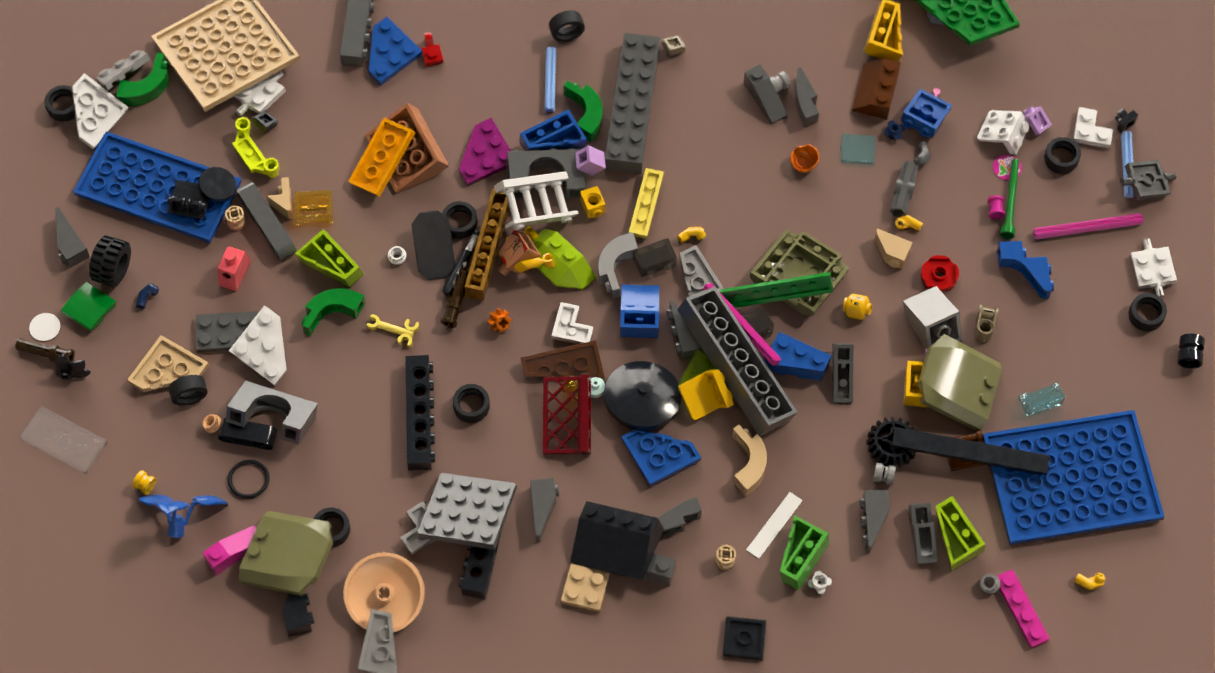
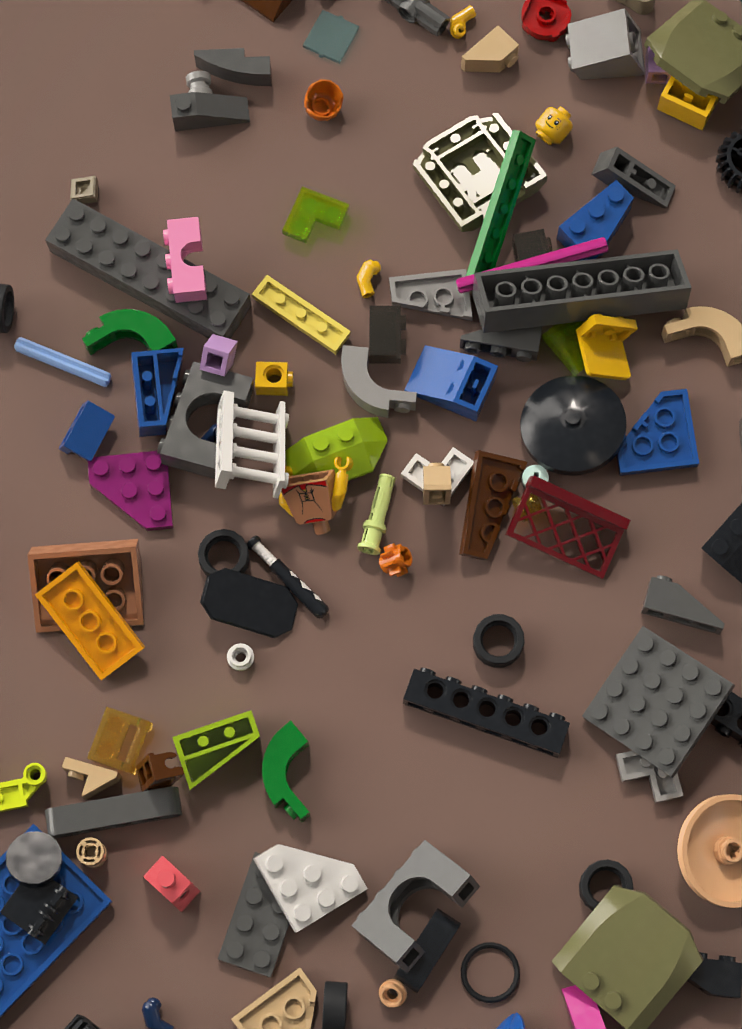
camera: 65 degrees left, 10 degrees up
(296, 231) = (154, 773): none -> reddish brown hinge
(405, 333) = (359, 686): light yellow bar -> none
(454, 307) = (350, 610): dark brown pin -> none
(487, 246) = (282, 533): pearl gold brick -> none
(508, 109) = (87, 431): none -> blue panel
(517, 300) = (375, 526): none -> yellowish green pin
(558, 320) = (436, 484): none -> tan slope
(656, 105) = (183, 238): none -> bright pink arch
(722, 179) = (313, 207): none -> clear neon green plate

